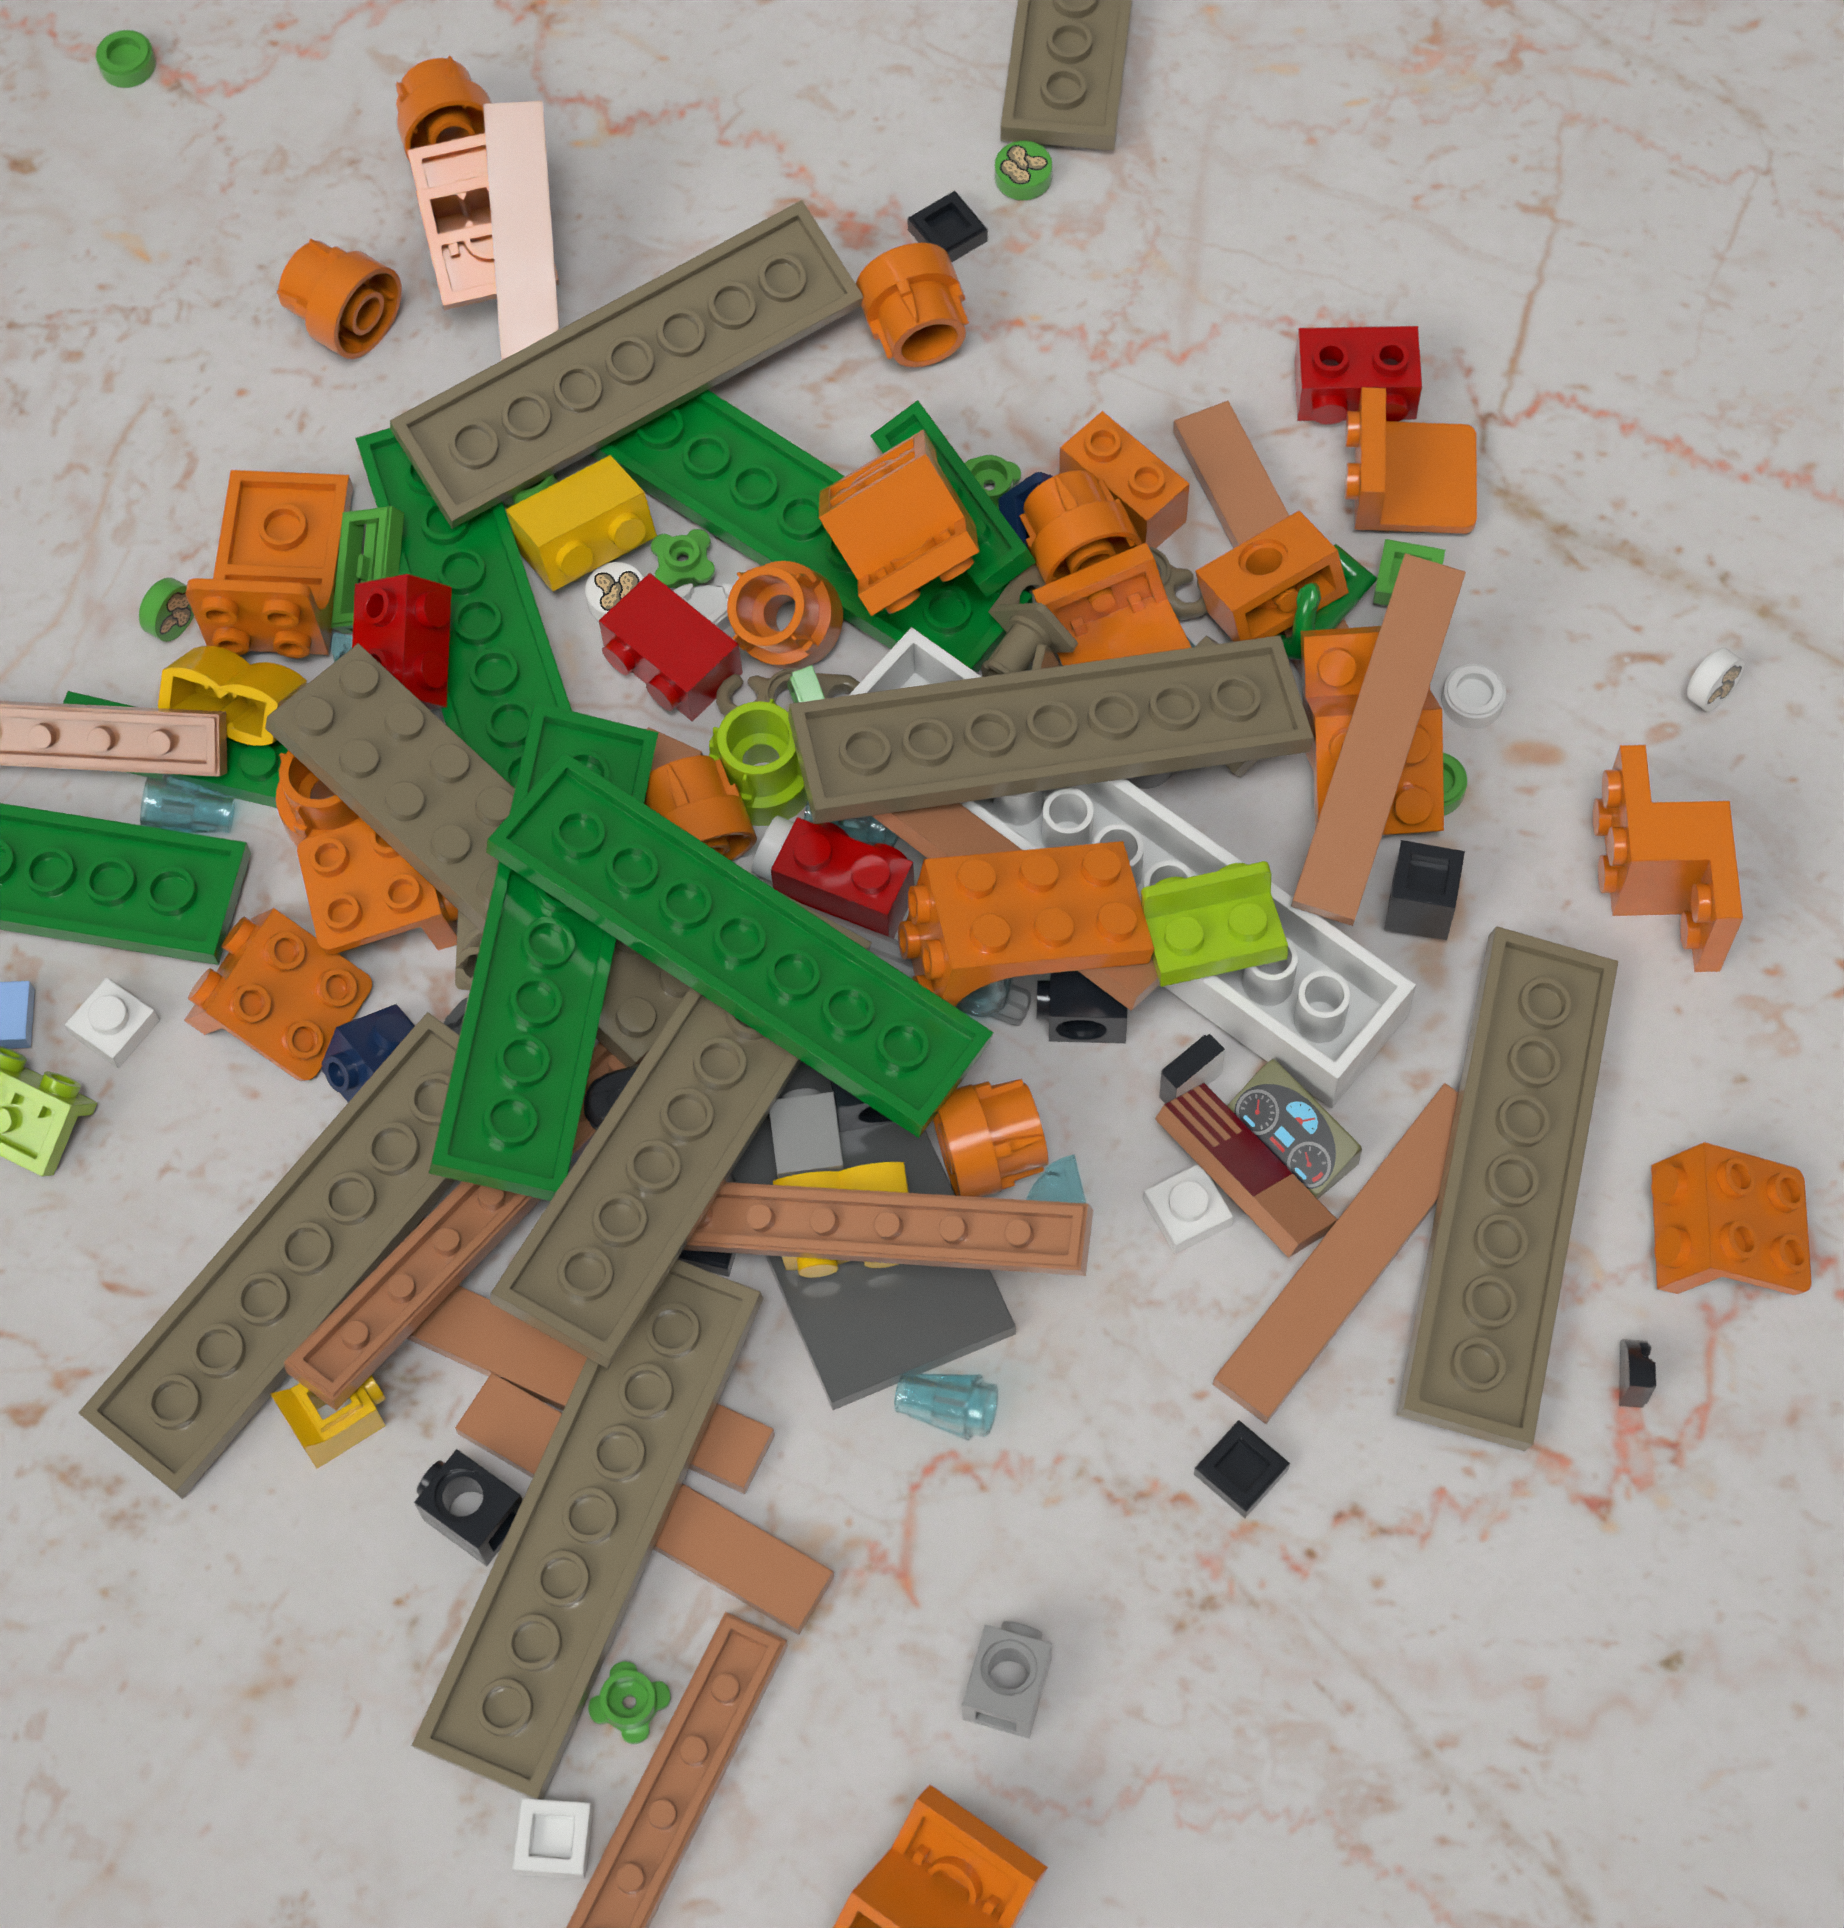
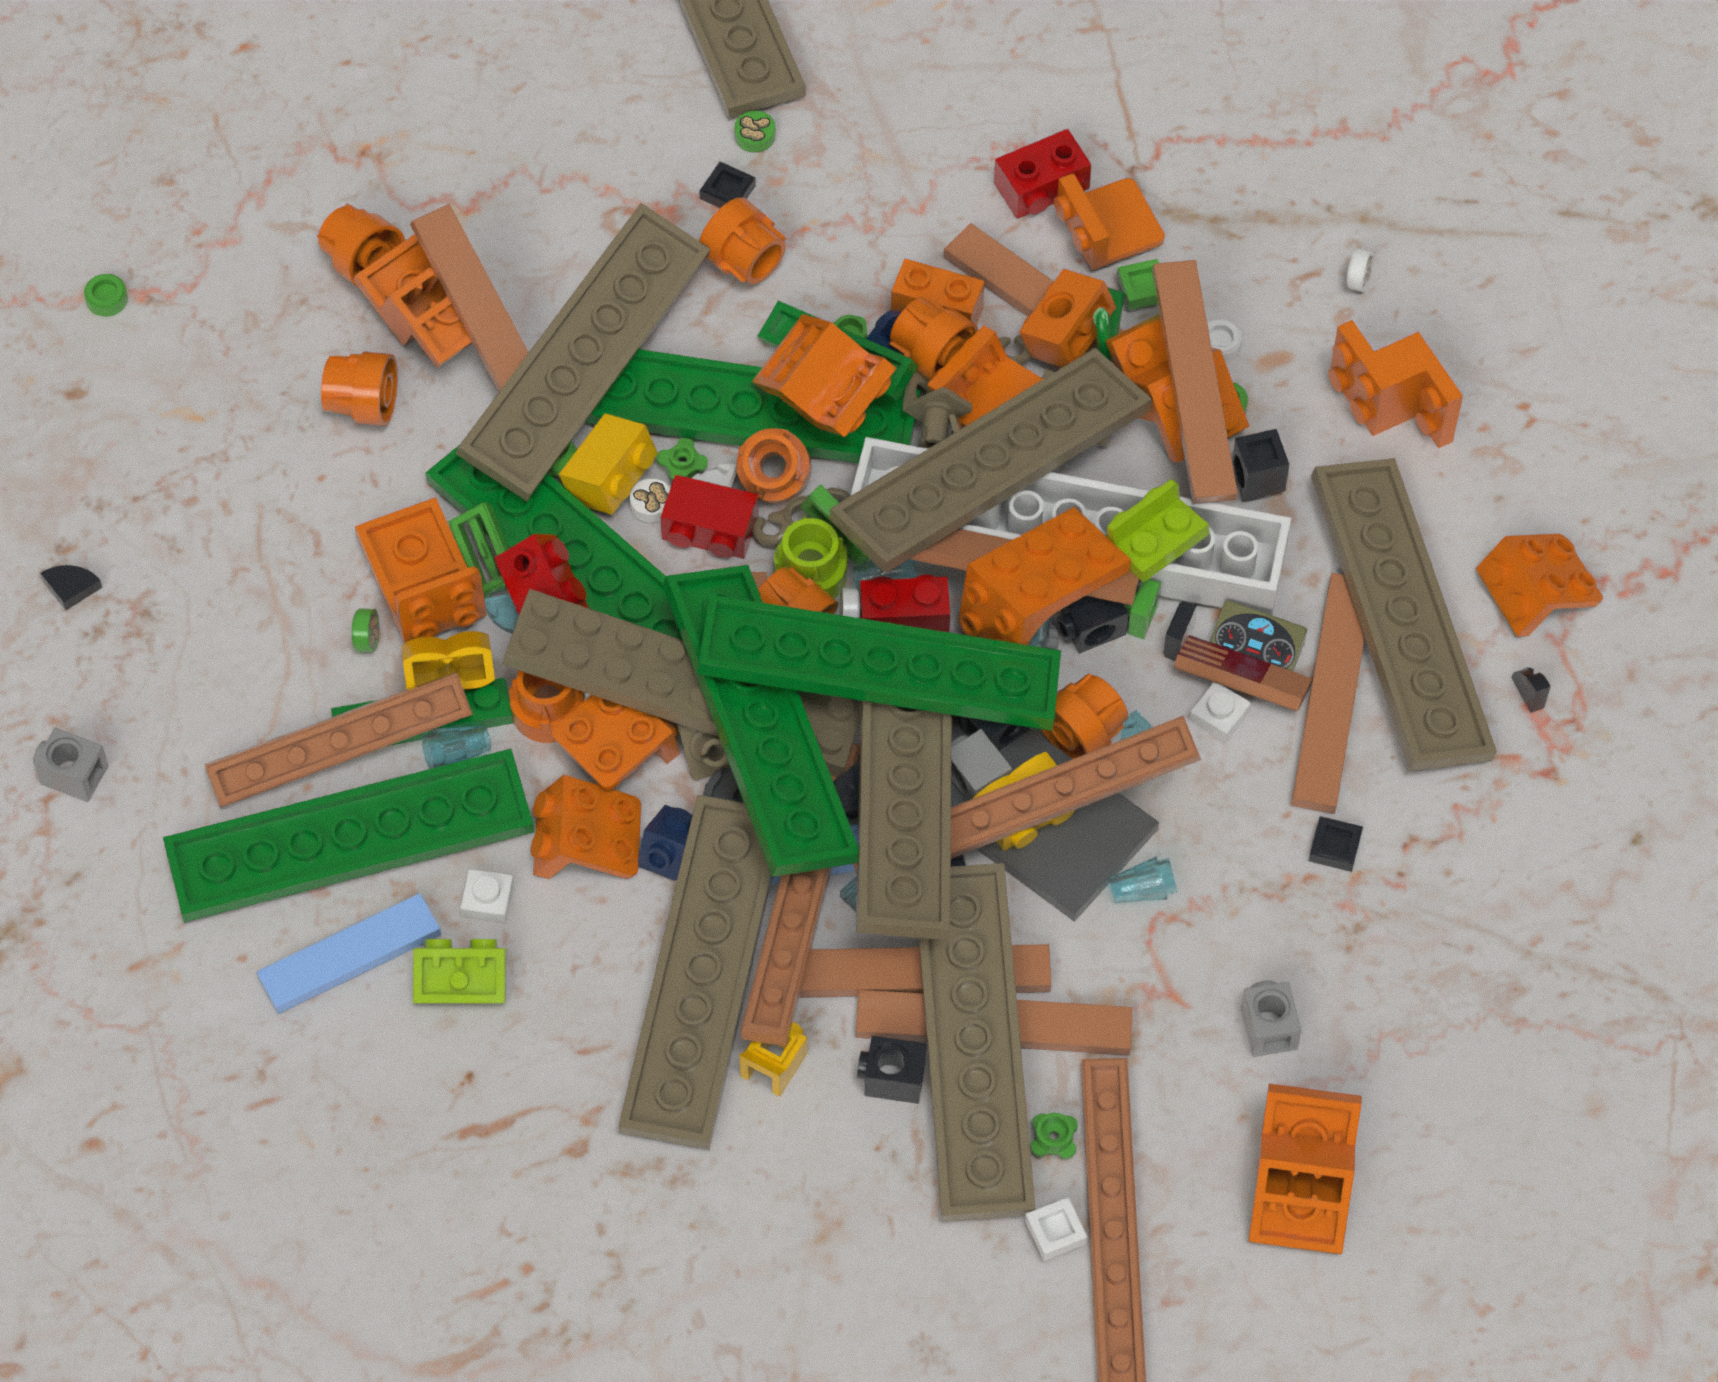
camera: 30 degrees left, 5 degrees down
(1160, 1018) = (1143, 608): none -> bright green plate

